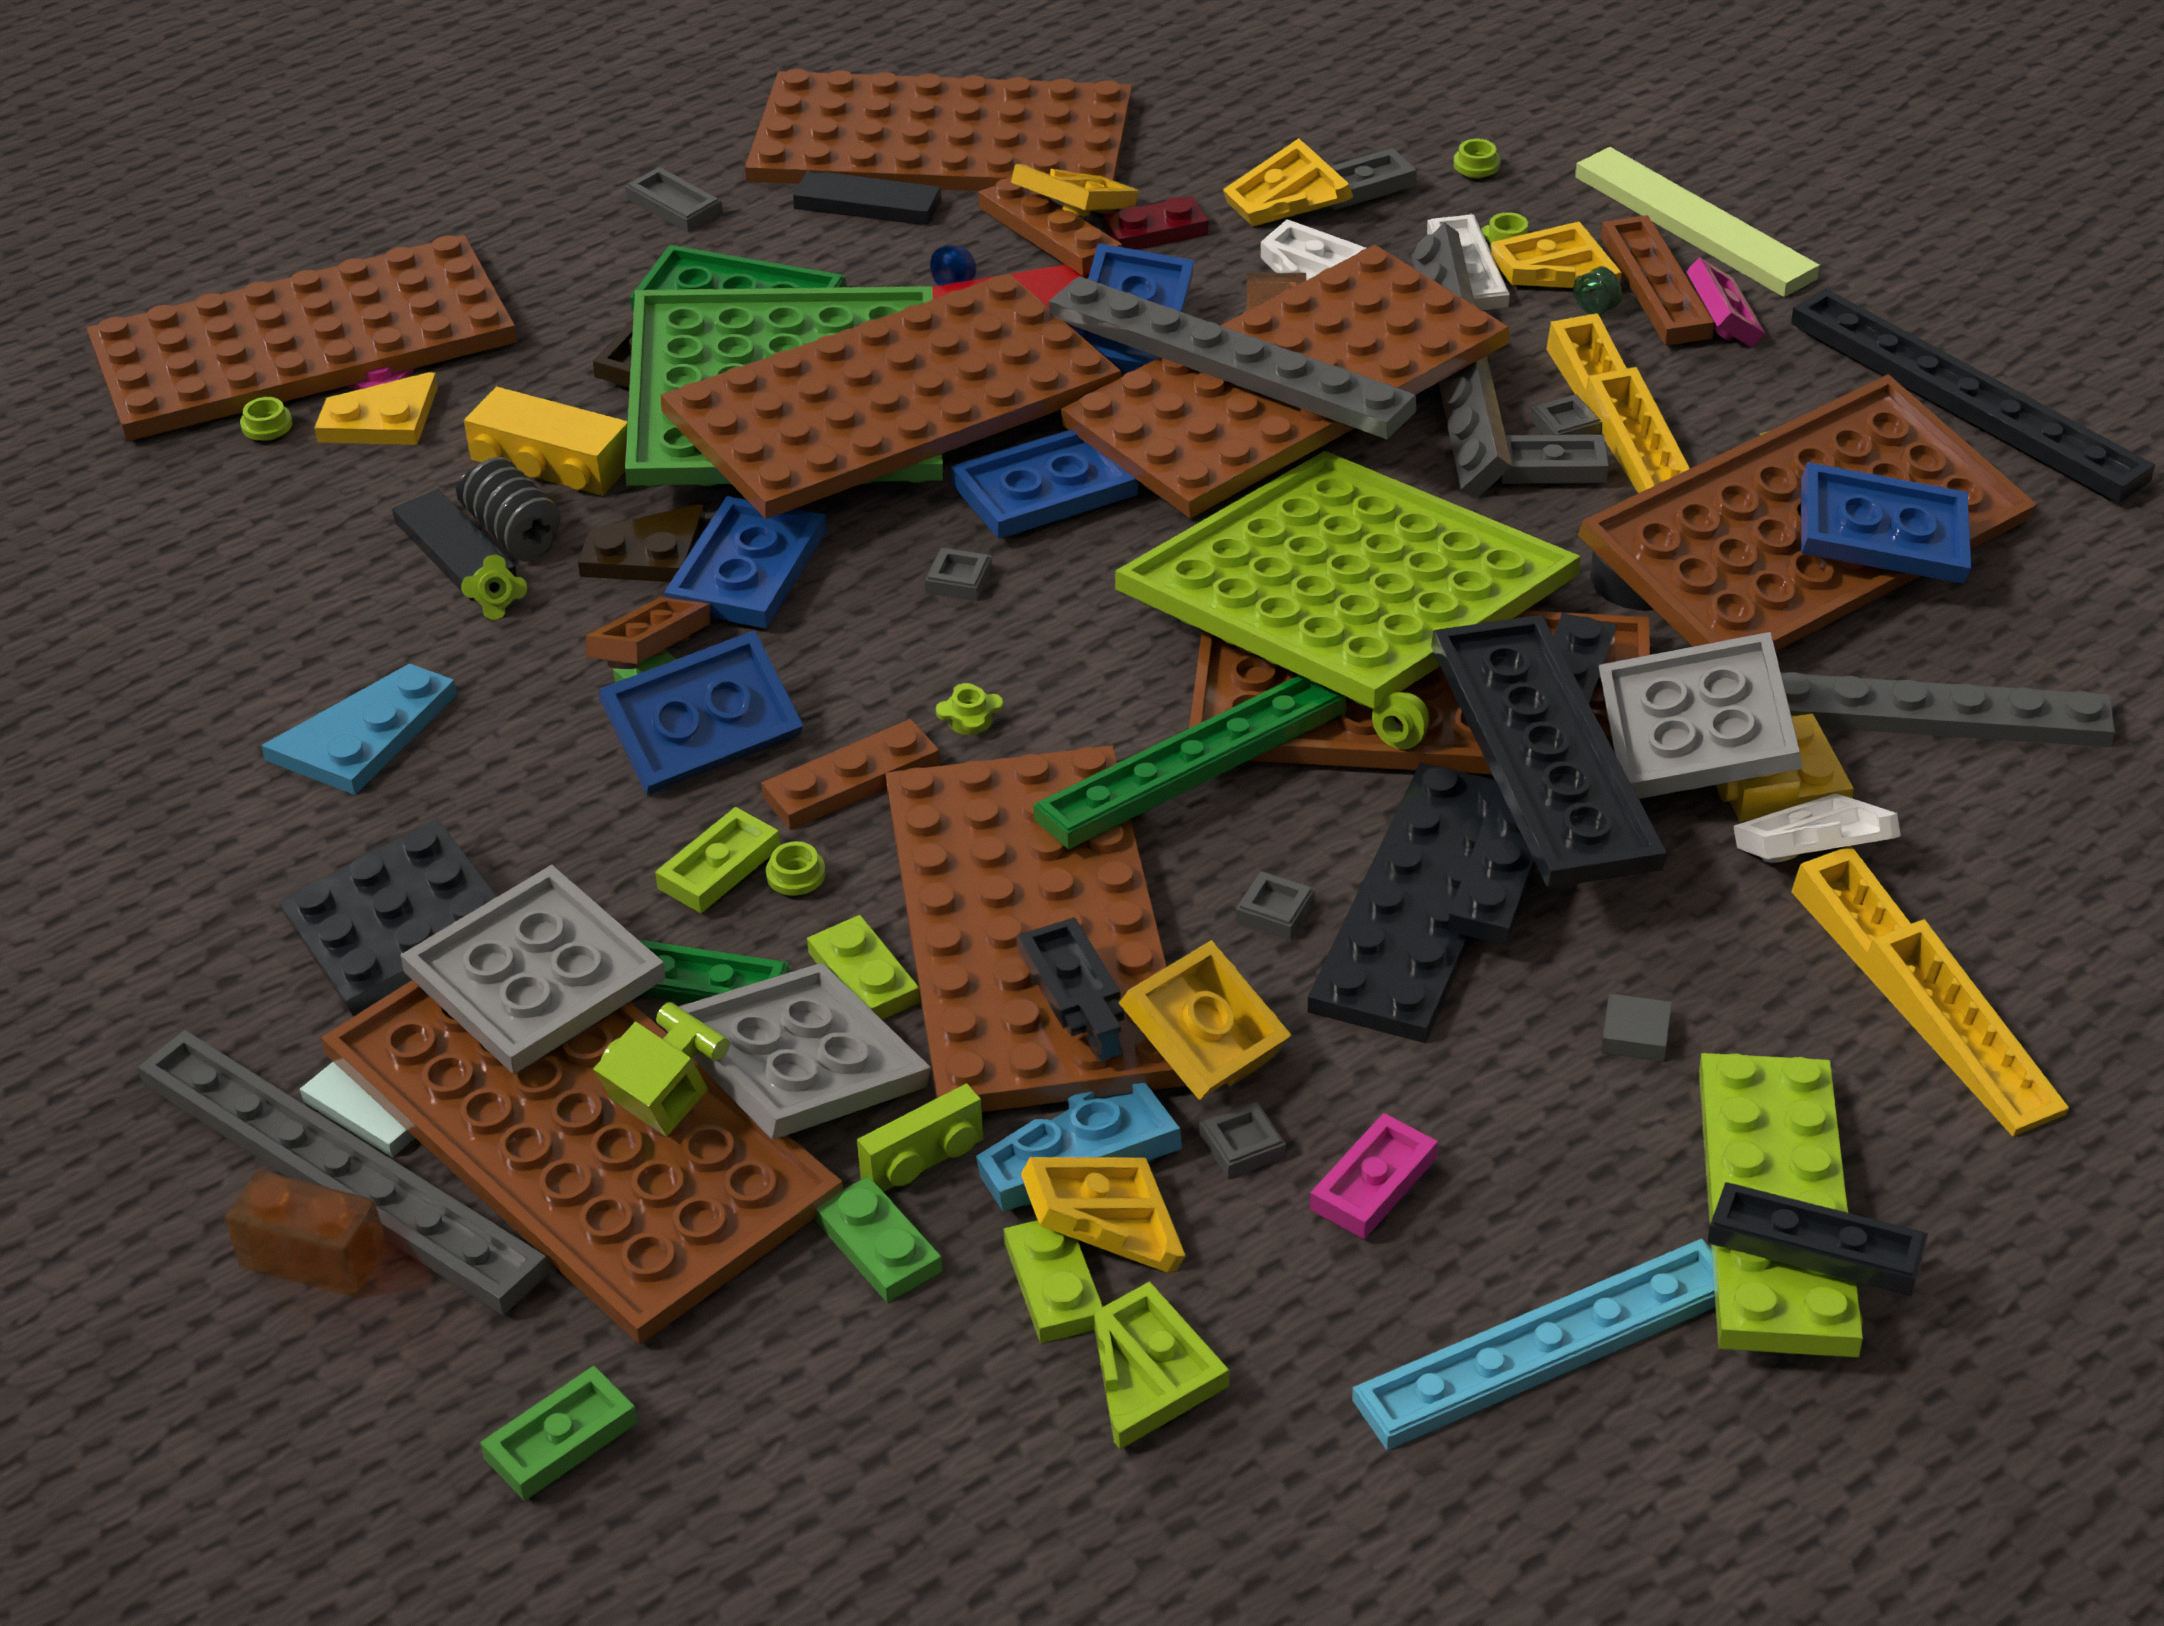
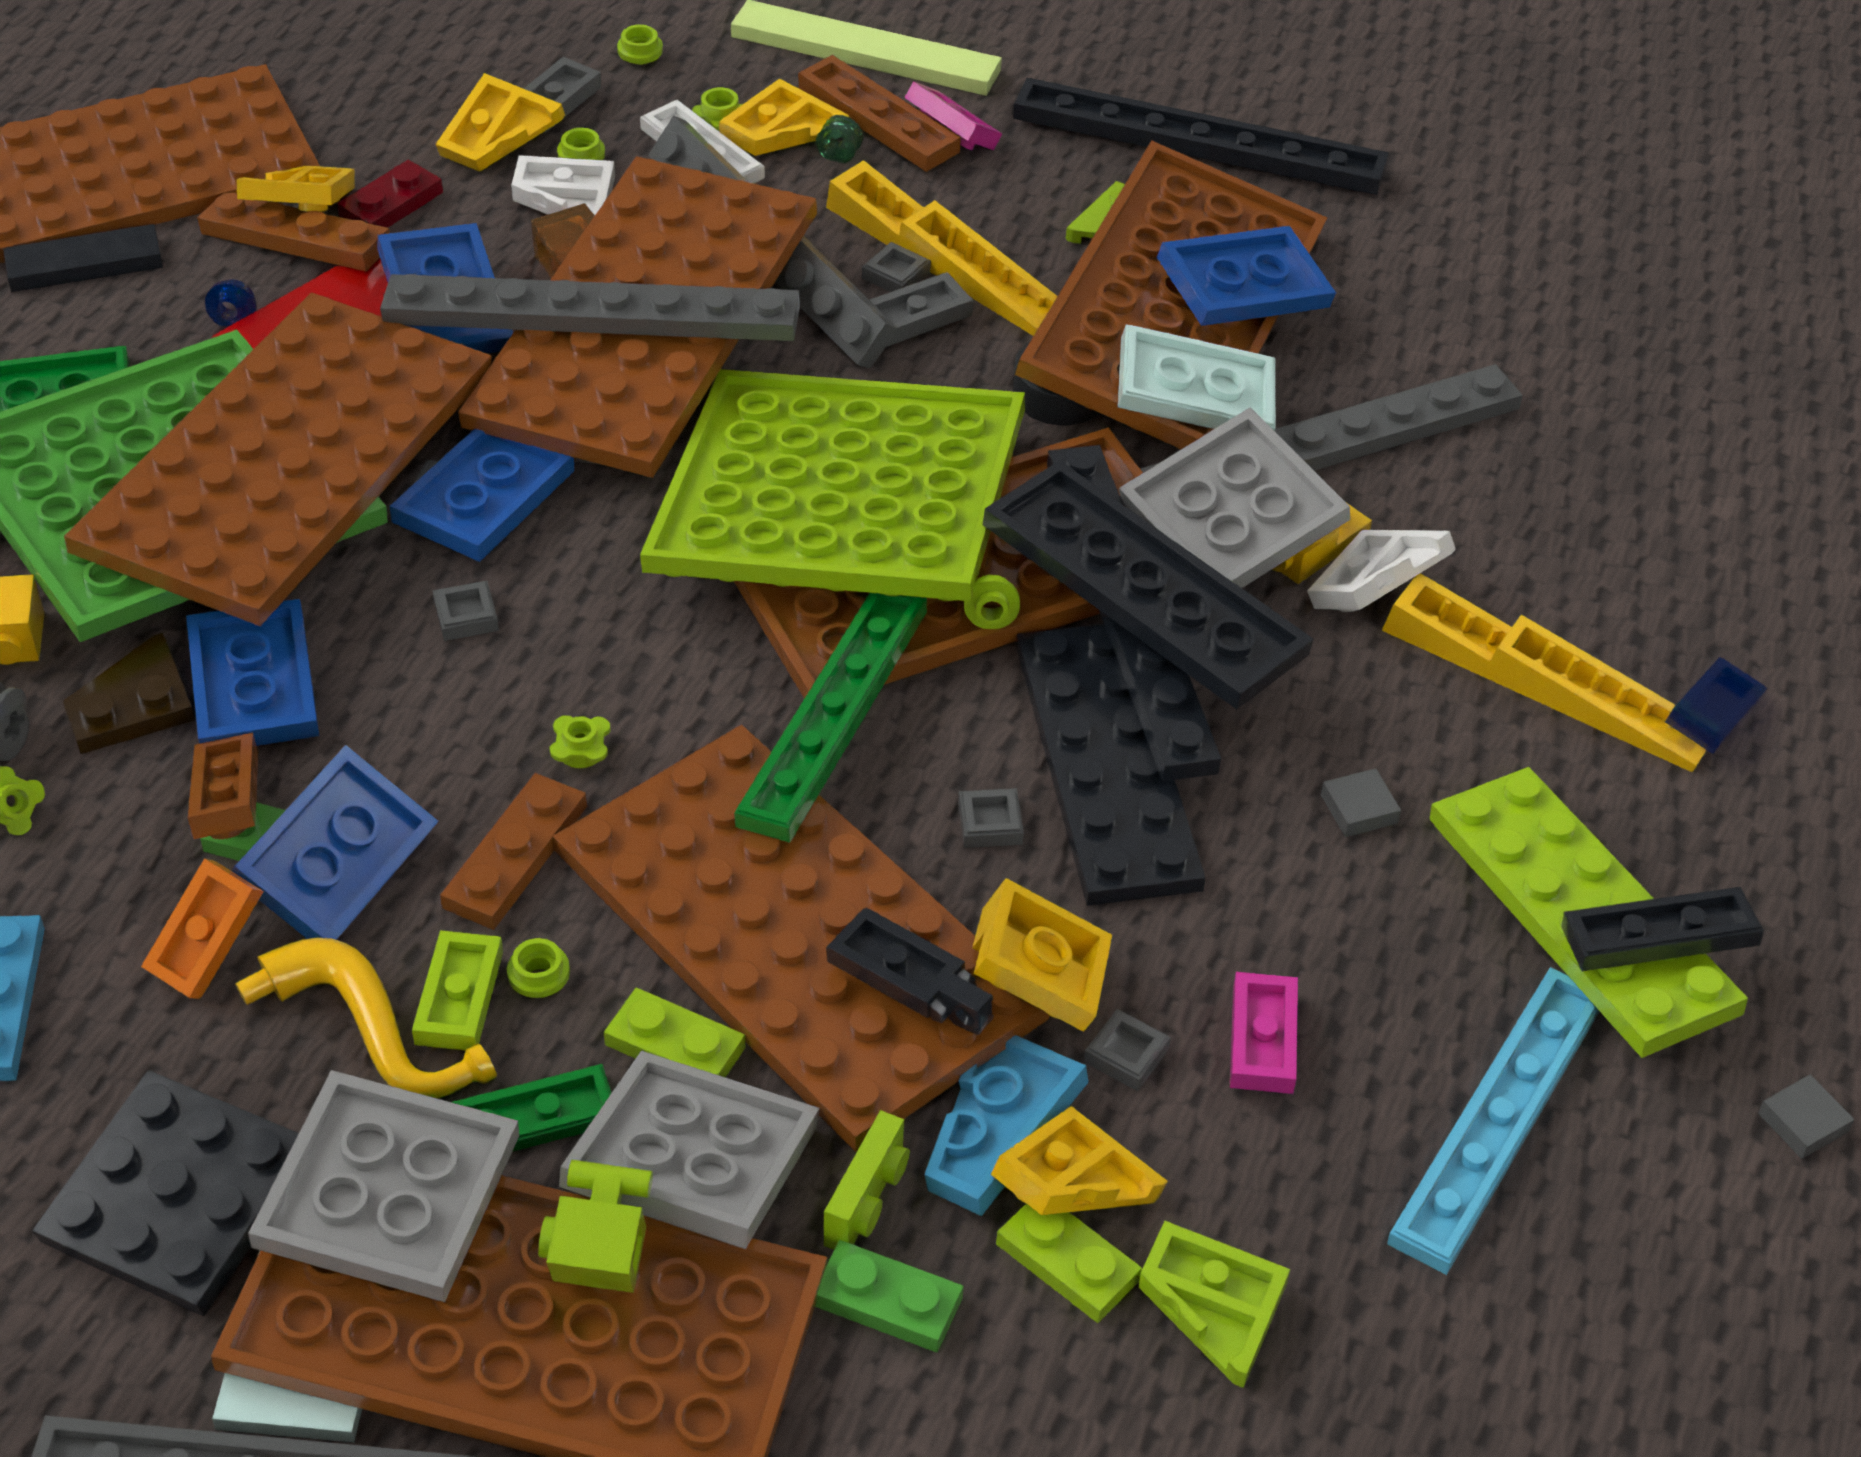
camera: 35 degrees left, 5 degrees up
(554, 731) = (202, 929): none -> orange plate
(637, 798) = (336, 963): none -> yellow animal
(1354, 227) = (581, 144): none -> lime plate
(1751, 593) = (1193, 379): none -> light aqua tile
(1860, 1478) = (1806, 1116): none -> dark grey tile
(2081, 1082) = (1716, 705): none -> clear blue tile

